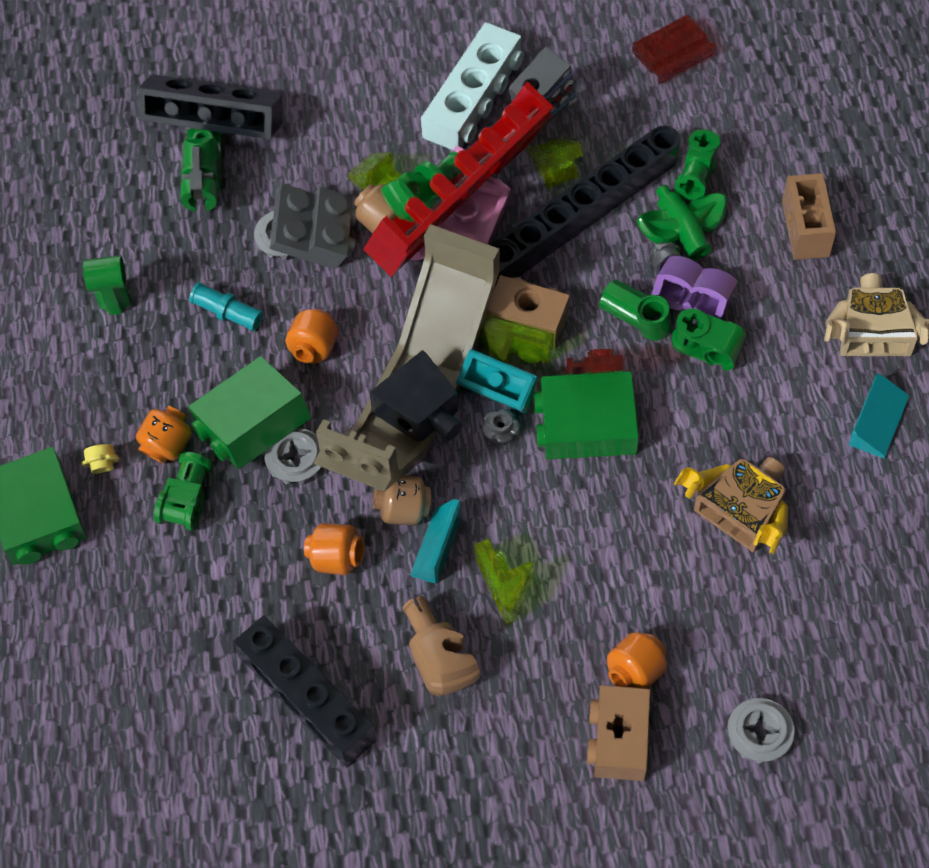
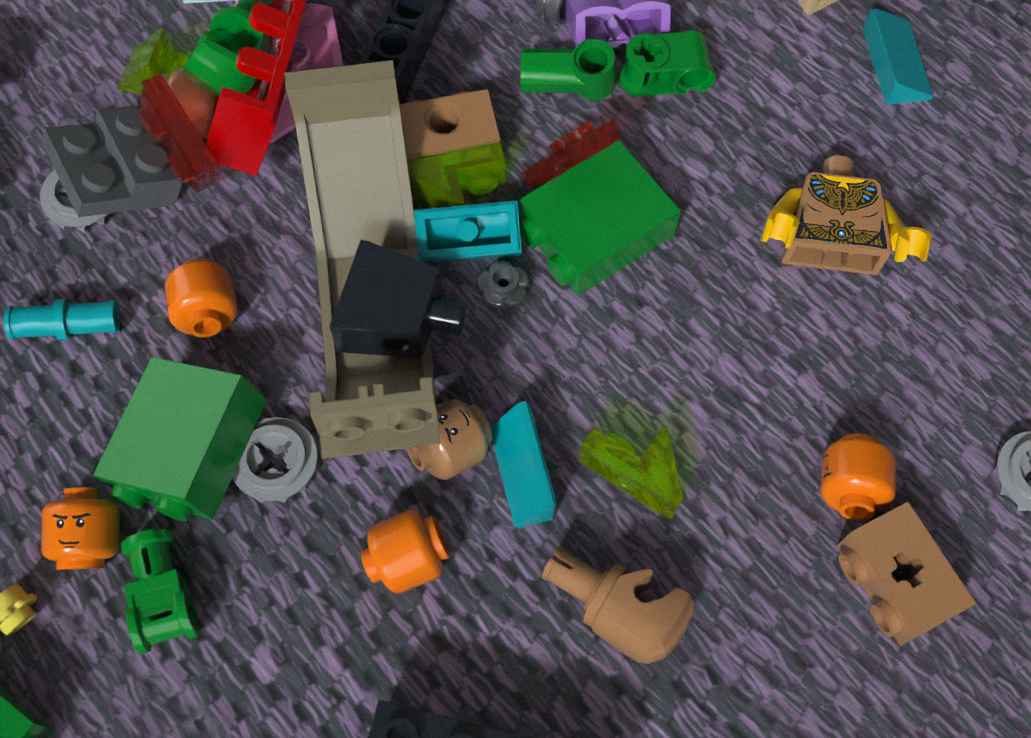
camera: 35 degrees left, 5 degrees up
(352, 214) = (166, 119): none -> clear red plate

